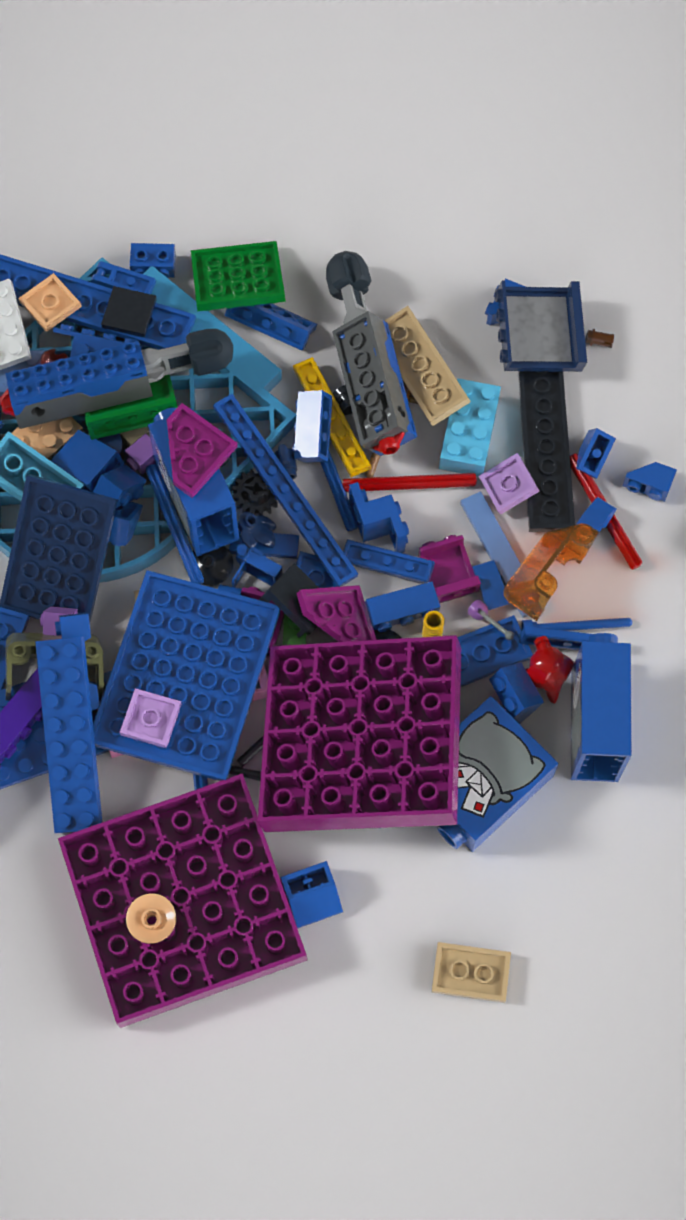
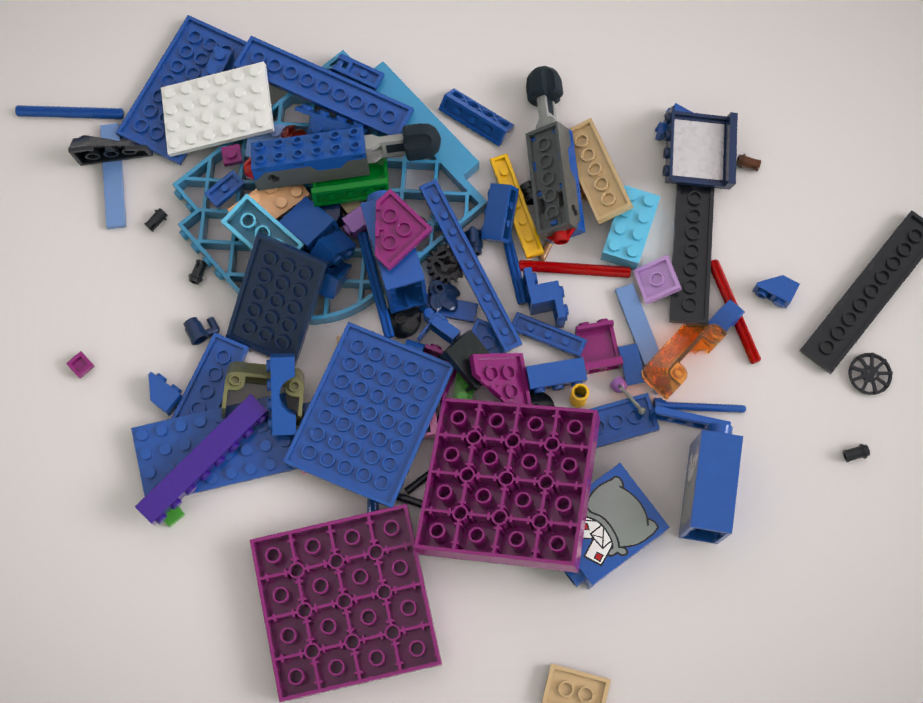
camera: 10 degrees right, 5 degrees up
(50, 302) = (295, 85): light nougat tile -> none
(51, 616) = (267, 349): medium lavender brick -> none
(69, 734) = (268, 453): blue plate -> none
(129, 311) = (359, 99): black tile -> none
(148, 906) = (307, 614): light nougat dish -> none
(150, 718) = (336, 449): lavender plate -> none
(156, 255) = (389, 53): blue brick -> none
(237, 276) = (452, 77): green plate -> none
(311, 894) = (452, 611): blue slope -> none
(516, 691) = (642, 460): blue slope -> none
(549, 668) = (670, 443): red piece -> none
(594, 452) = (732, 261): blue slope -> none

